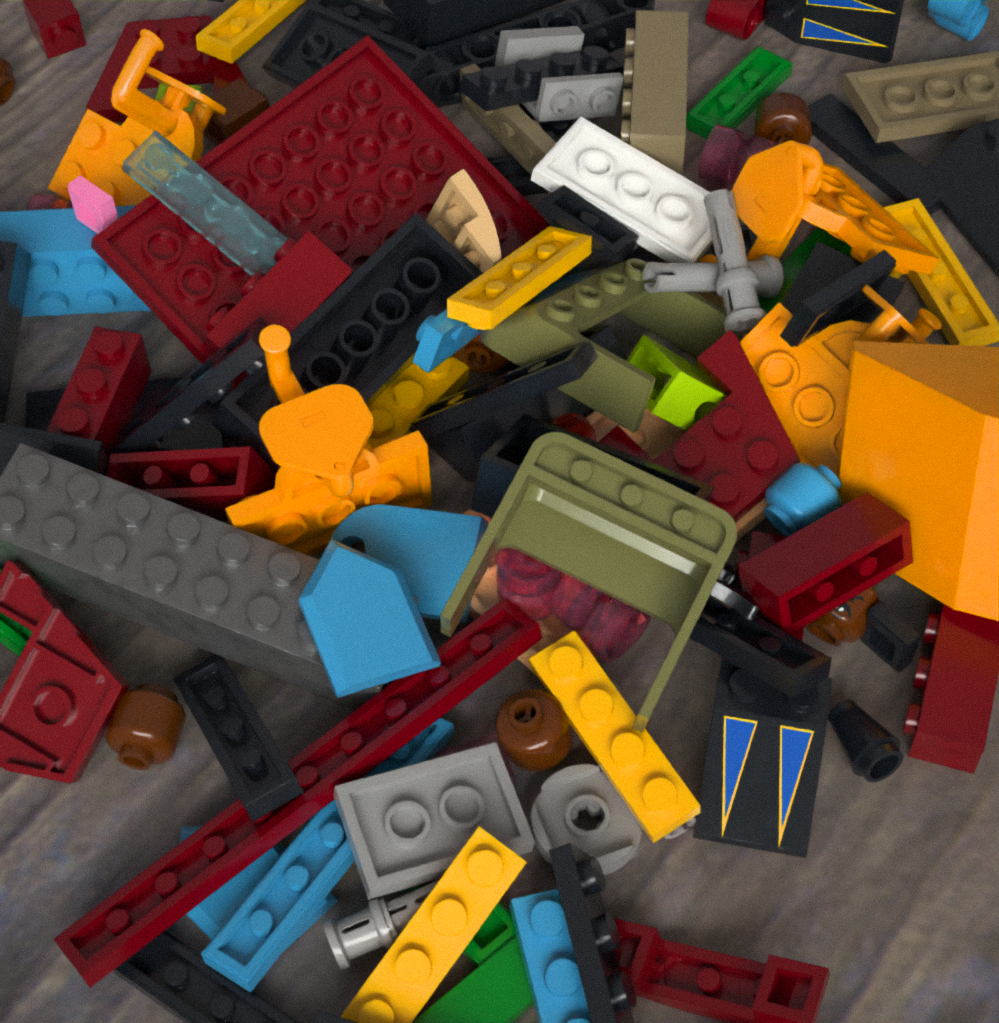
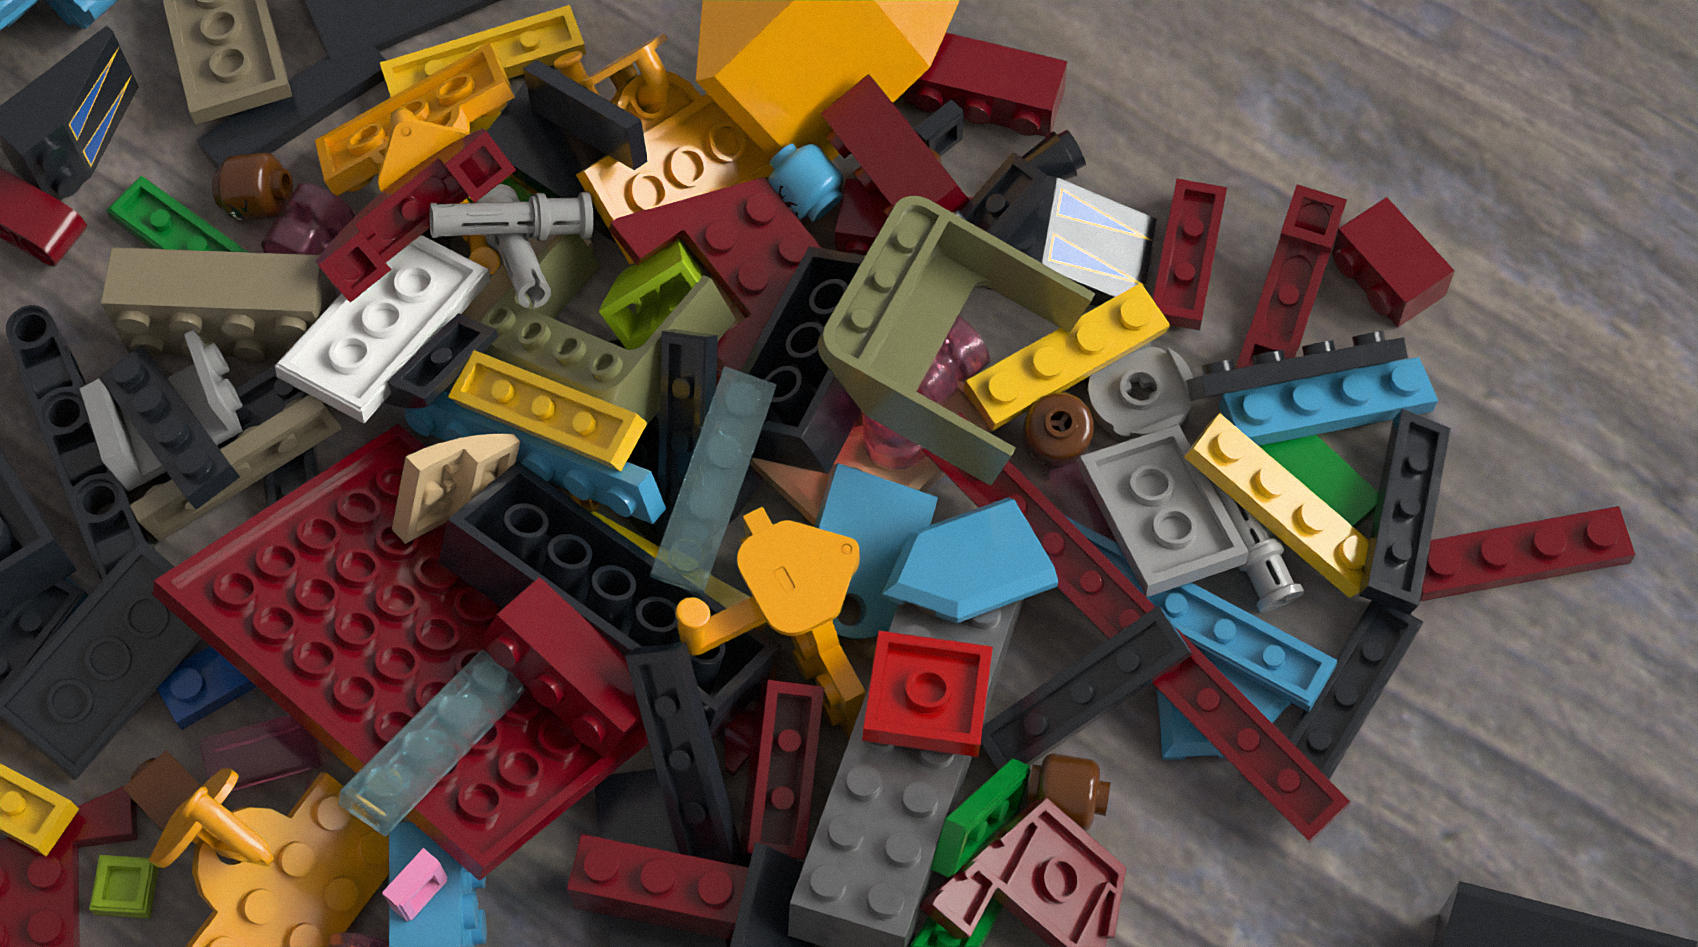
camera: 90 degrees left, 10 degrees up
(108, 626) = (980, 817): none -> green tile
(209, 557) = (927, 693): none -> red plate
(454, 399) = (713, 480): none -> clear light blue plate
(705, 167) = (401, 211): none -> dark red slope
(759, 878) = (1189, 252): none -> dark red plate

